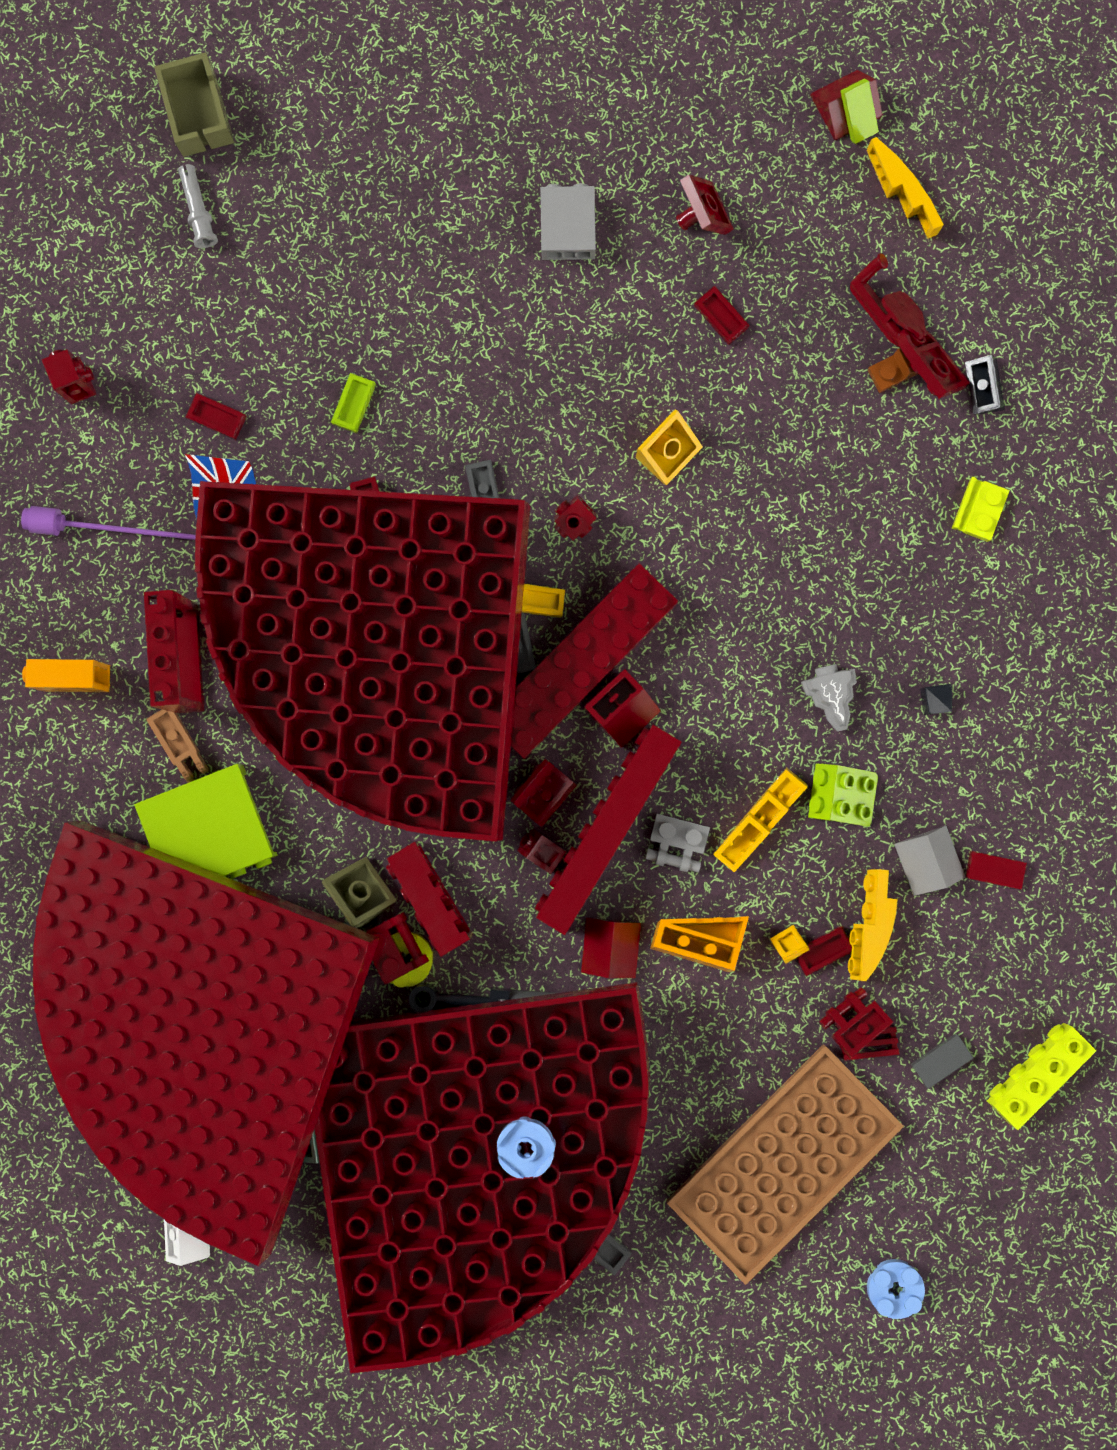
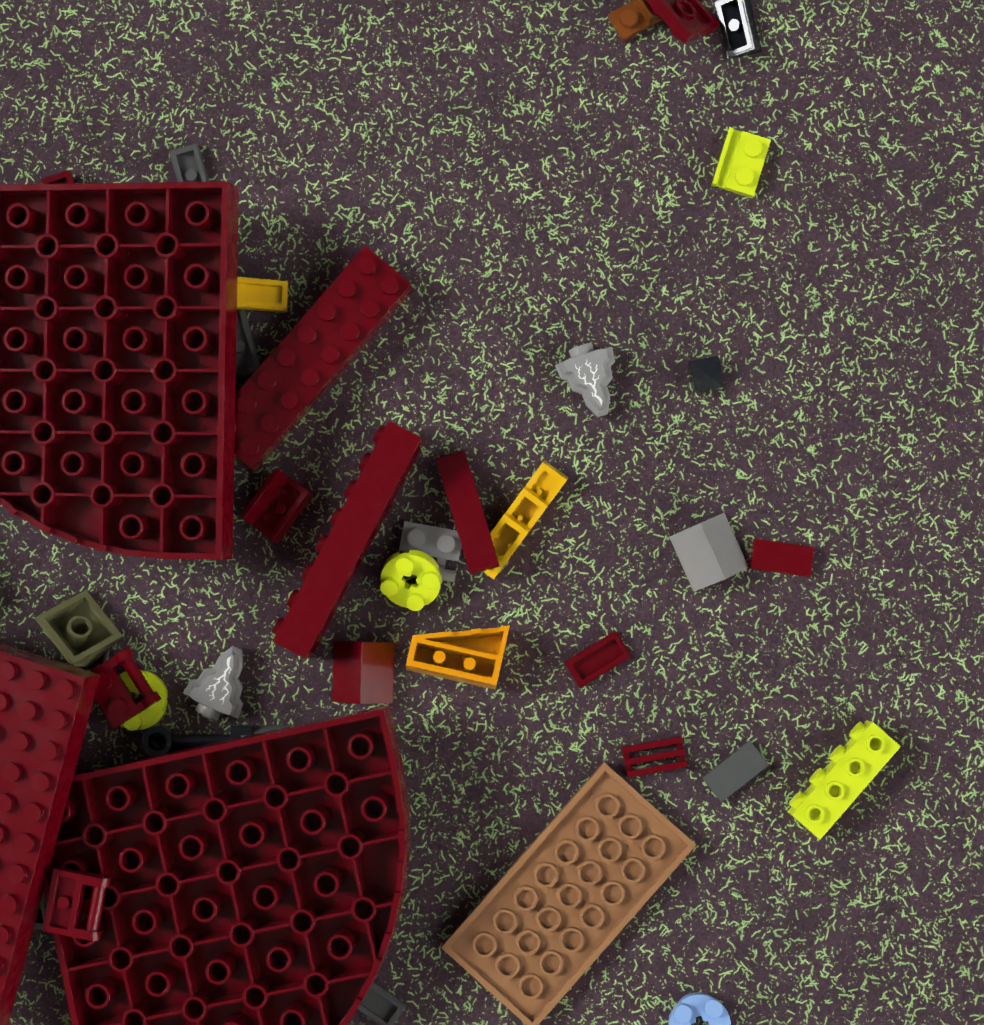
camera: 10 degrees left, 0 degrees up
(335, 1142) = (66, 901): none -> dark red plate
(353, 403) = (41, 91): lime tile -> none
(429, 898) = (157, 630): dark red wedge -> none
(481, 953) = (219, 687): none -> light grey rock
(529, 1164) = (291, 886): light blue plate -> none
(541, 851) = (278, 570): dark red bracket -> none
(575, 508) = (299, 193): dark red brick -> none
(622, 708) = (358, 406): dark red slope -> none
(656, 881) = (411, 595): none -> neon yellow plate
(669, 448) = (392, 117): yellow slope -> none
(715, 811) = (467, 512): none -> dark red slope
(789, 944) = (559, 654): yellow tile -> none
(843, 794) = (608, 485): lime bracket -> none
(859, 1030) = (641, 741): dark red plate -> none
(873, 936) = (648, 639): yellow slope -> none

